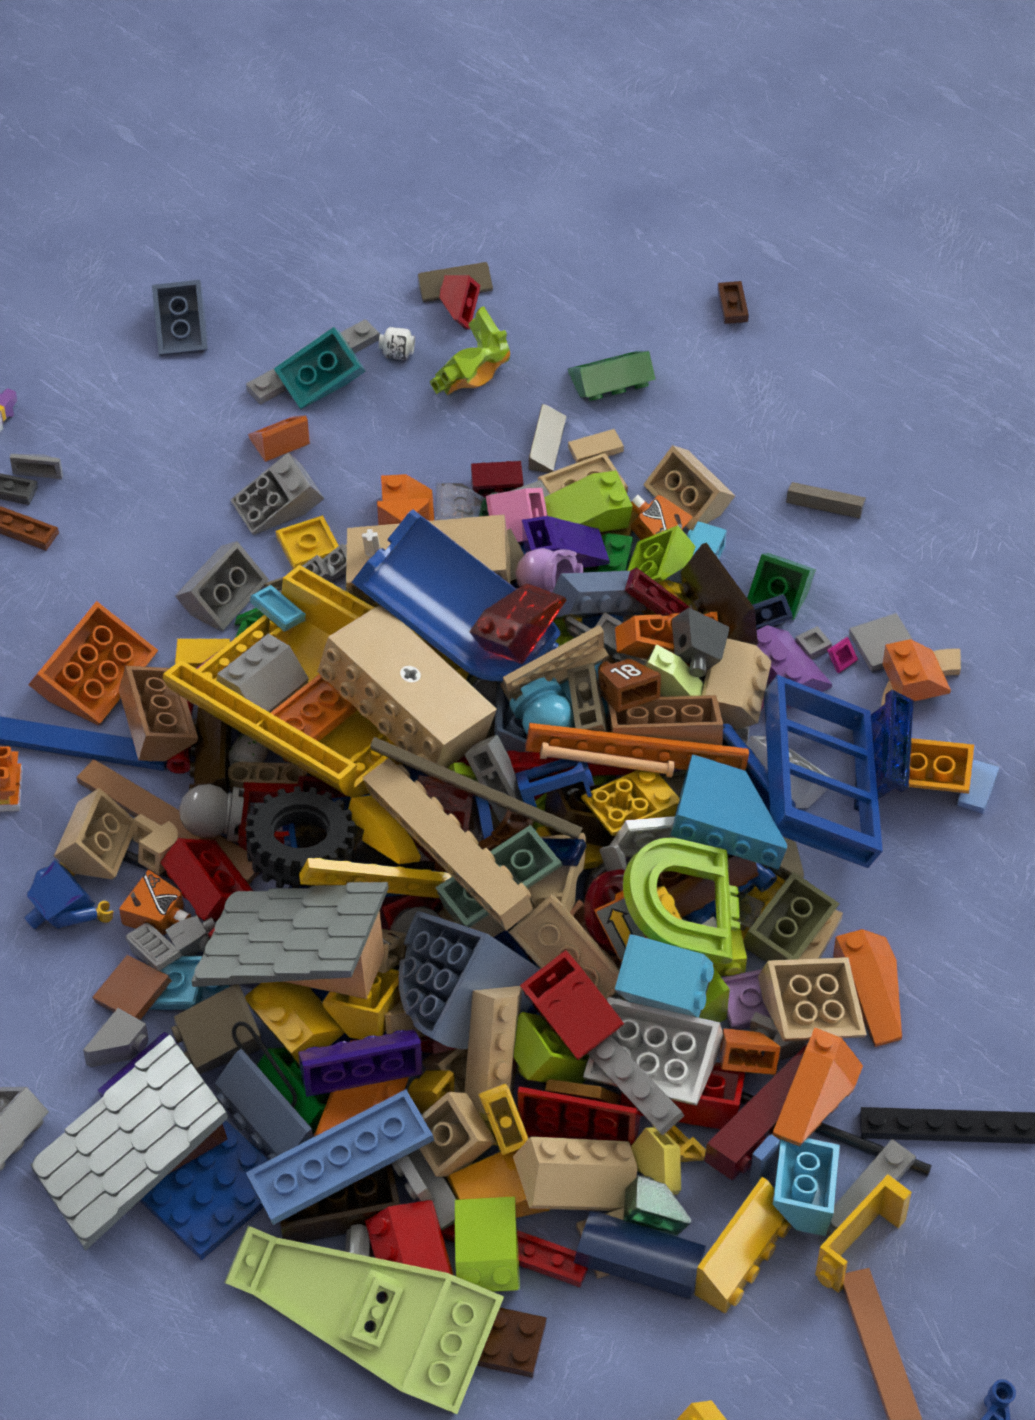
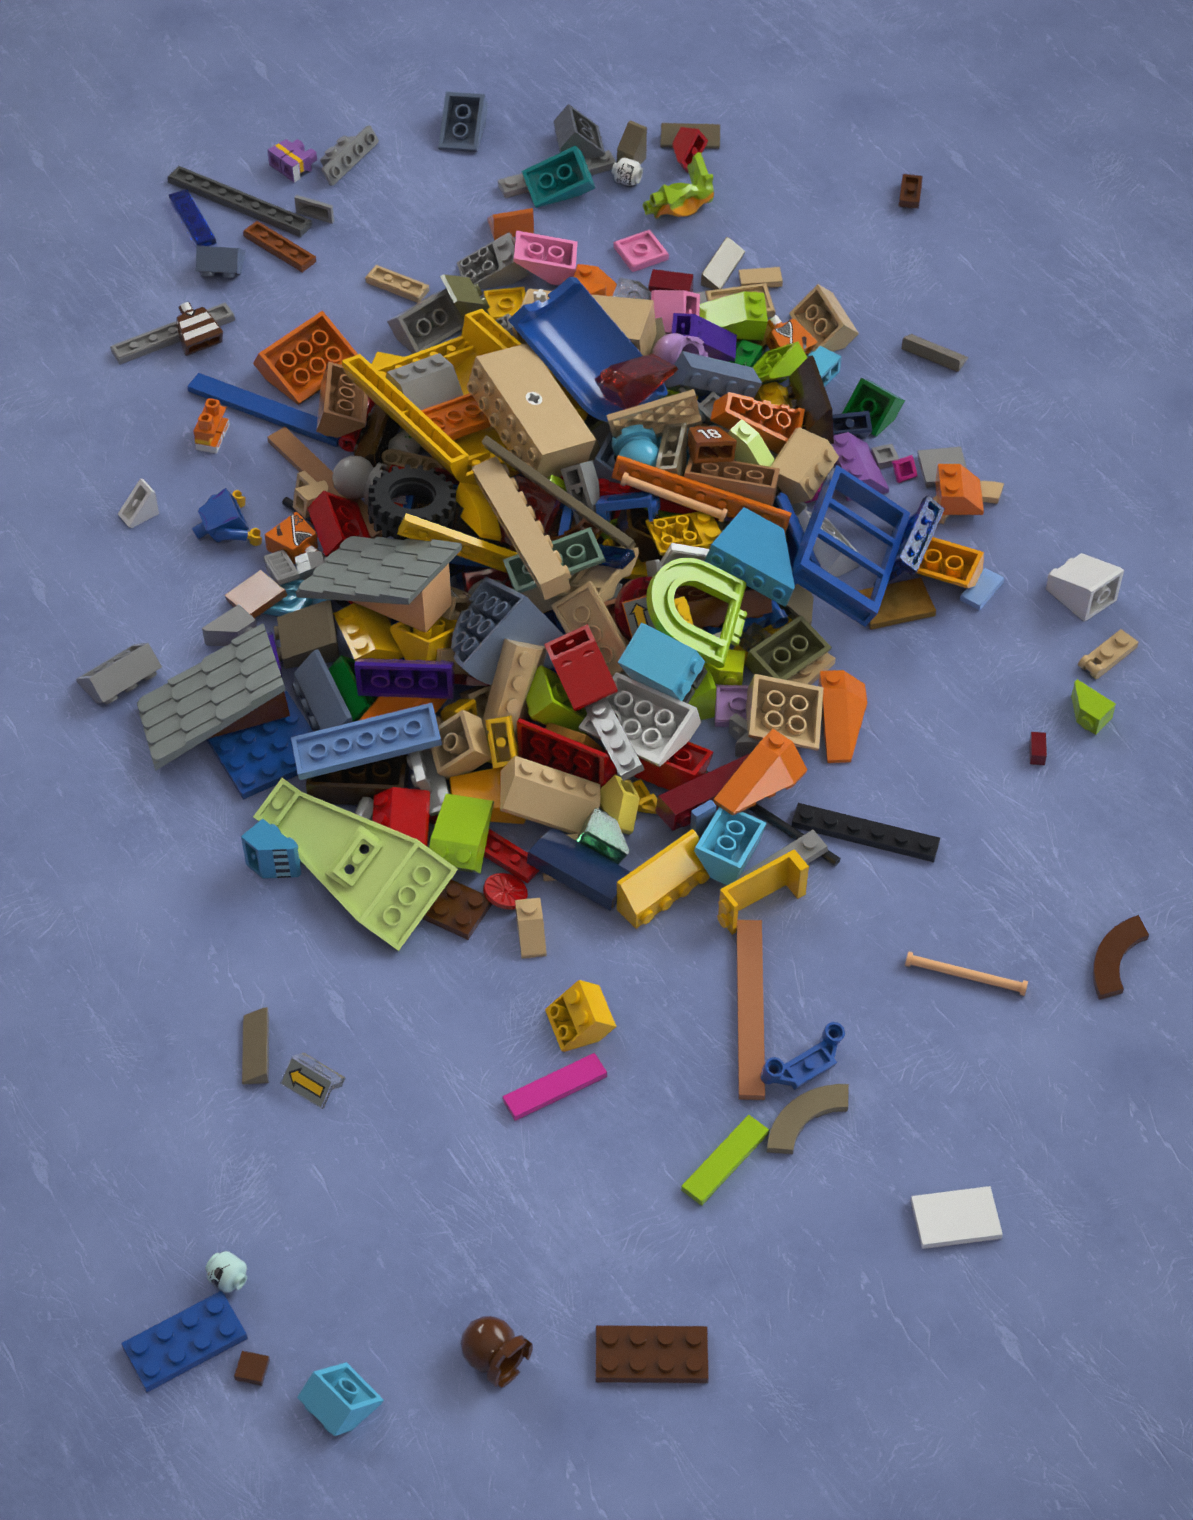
camera: 15 degrees right, 0 degrees up
(51, 386) = (347, 153): none -> light grey bracket
(96, 837) = (265, 481): tan slope -> none
(167, 542) = (397, 283): none -> tan tile
(263, 547) = (465, 294): none -> olive slope
(265, 1326) = (270, 852): none -> dark azure slope
(270, 1058) = (336, 657): black piece -> none
(277, 608) = (456, 338): medium azure tile -> none
(324, 307) = (576, 129): none -> dark grey slope
(342, 474) = (546, 256): none -> bright pink slope
(394, 307) = (633, 143): none -> dark tan slope
(444, 440) = (641, 250): none -> bright pink tile
(558, 1304) = (504, 889): none -> red wheel
(605, 1345) = (530, 928): none -> tan slope
(612, 374) = (792, 226): green slope -> none
(653, 594) = (756, 385): dark red tile -> none
(698, 640) = (778, 424): dark grey torso -> none
(742, 1052) = (717, 739): orange torso -> none
(900, 821) = (902, 603): none -> pearl gold tile

